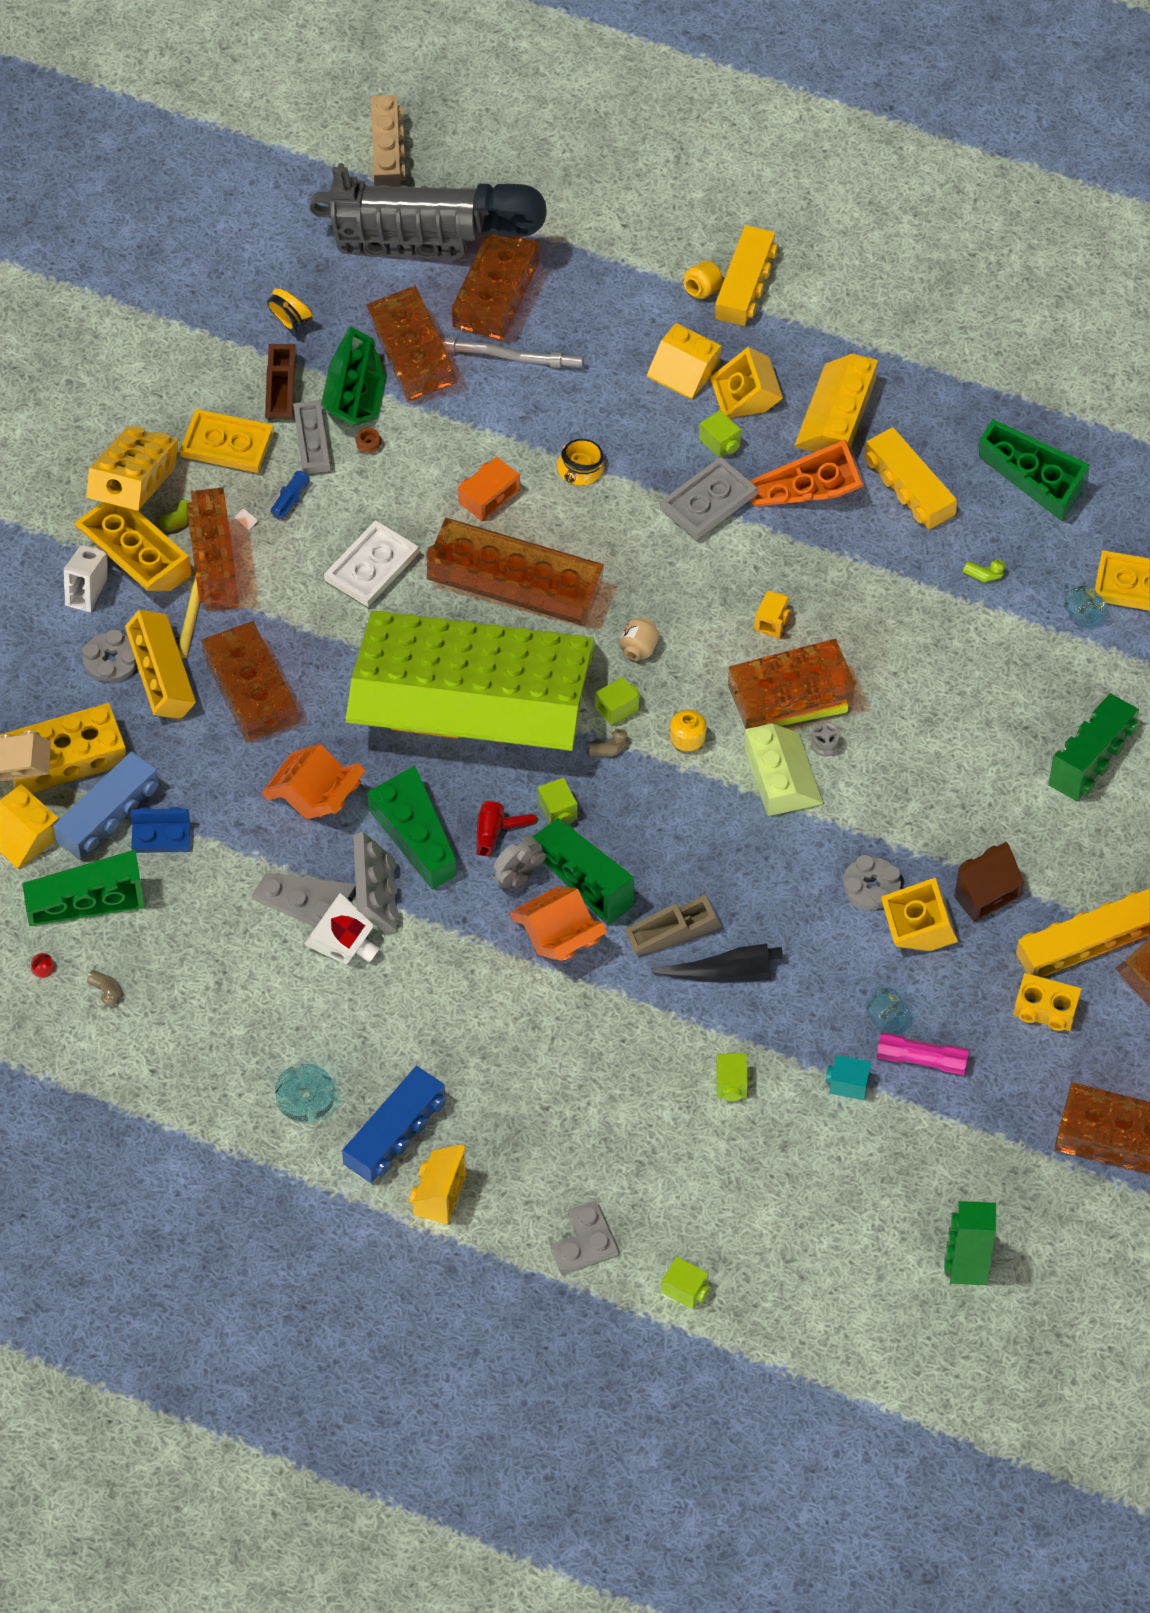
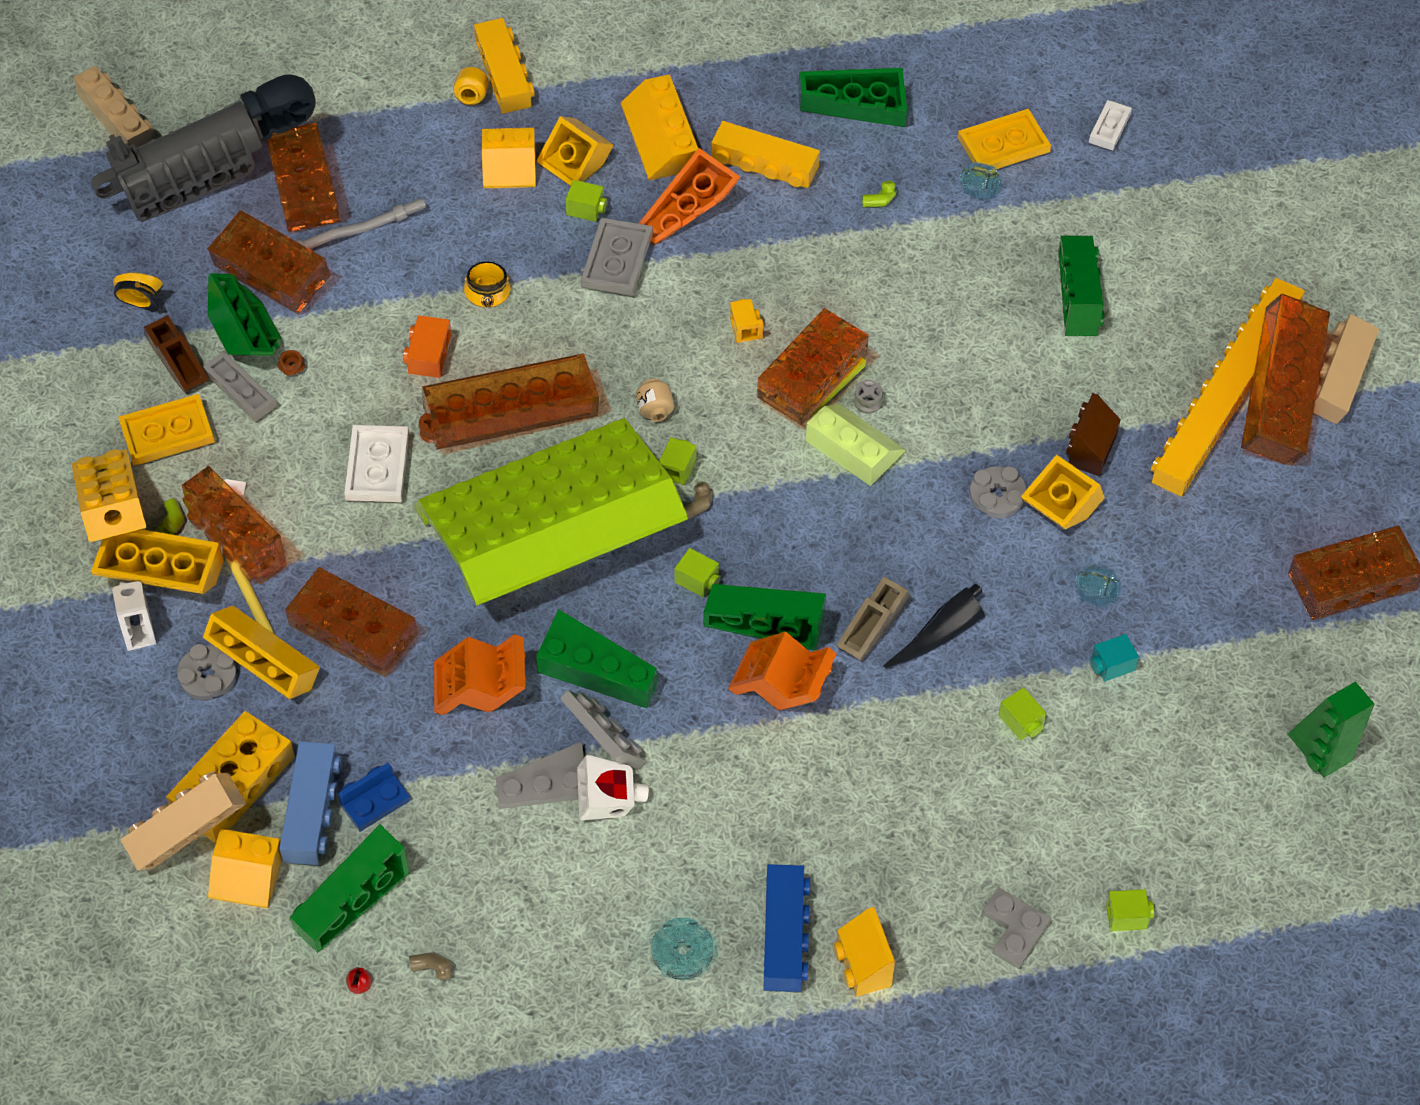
camera: 35 degrees left, 0 degrees up
(290, 494) = (258, 444): blue axle -> none
(492, 821) = (654, 622): red piece -> none
(517, 862) = (708, 641): light grey plate -> none
(687, 730) = (755, 451): yellow head -> none
(900, 1049) = (1170, 597): dark pink axle -> none
(1048, 995) = (1212, 501): yellow brick -> none

